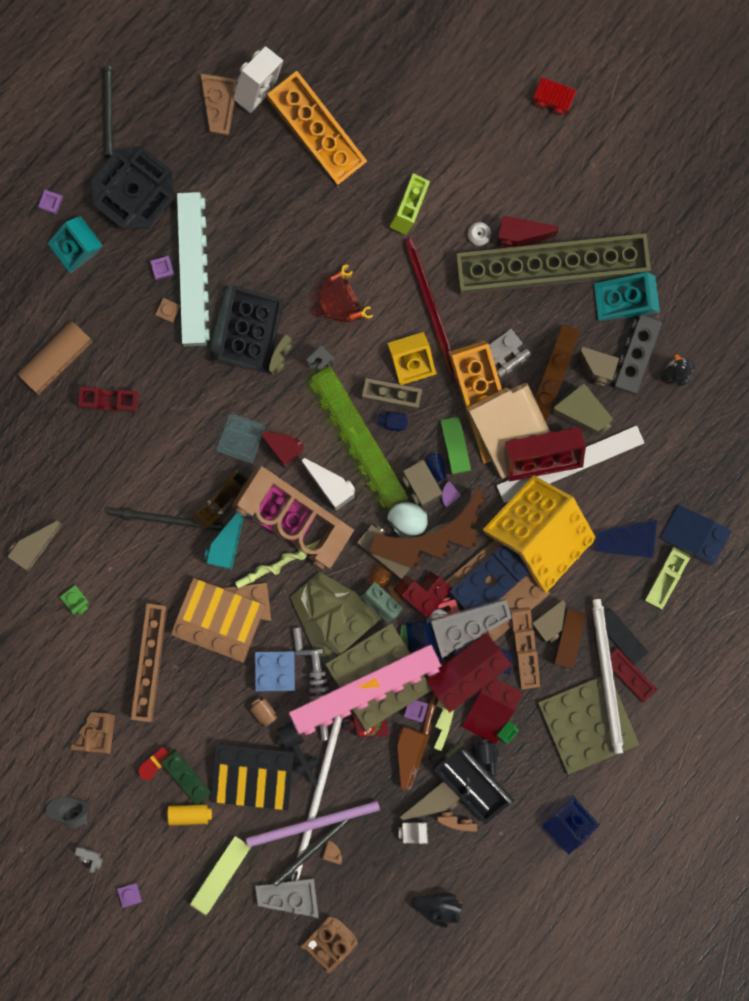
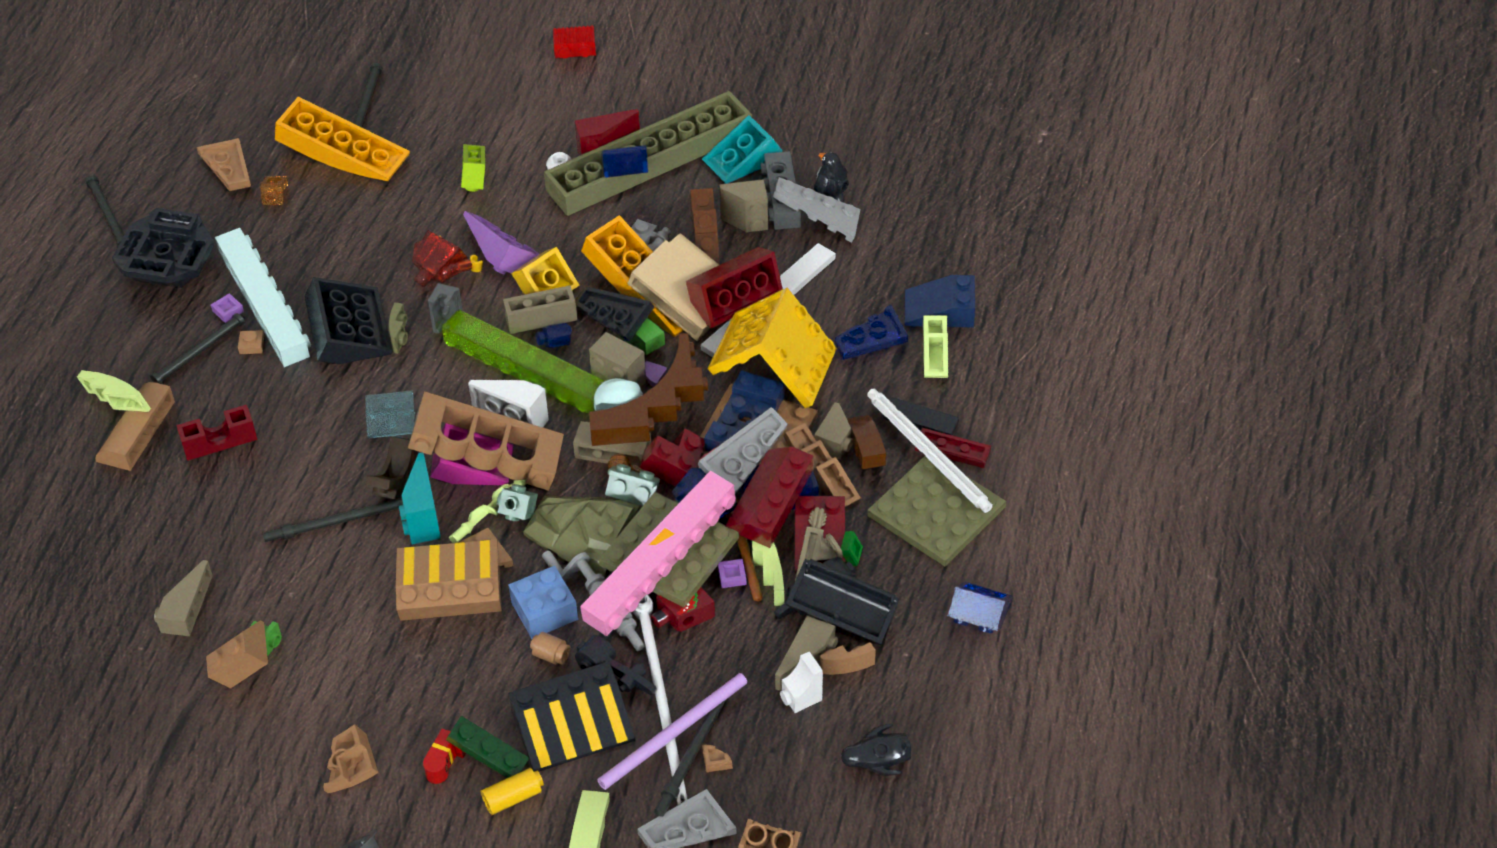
camera: 25 degrees left, 35 degrees down
(49, 327) = (114, 391): none -> yellowish green slope
(50, 202) = (73, 304): medium lavender tile -> none
(52, 615) = (239, 656): none -> medium nougat slope
(74, 244) = (116, 323): teal slope -> none
(126, 299) = (237, 320): none -> pearl dark grey bar
(149, 663) = (384, 654): medium nougat brick -> none
(244, 151) = (272, 190): none -> clear orange bracket
(257, 78) = (257, 115): white brick -> none
(284, 447) = (440, 382): dark red slope -> none
(294, 574) = (516, 502): none -> brick
(357, 78) = (375, 70): none -> pearl dark grey bar
(393, 312) = (497, 246): none -> medium lavender wedge
(410, 753) = (748, 605): dark orange slope -> none
(430, 303) = (545, 236): dark red piece -> none
(447, 431) = (614, 311): none -> black wing
(480, 724) = (814, 545): none -> dark tan piece
(523, 276) = (624, 161): none -> clear blue slope
(584, 411) = (752, 231): olive slope -> none
(654, 395) = (834, 213): none -> light grey wing

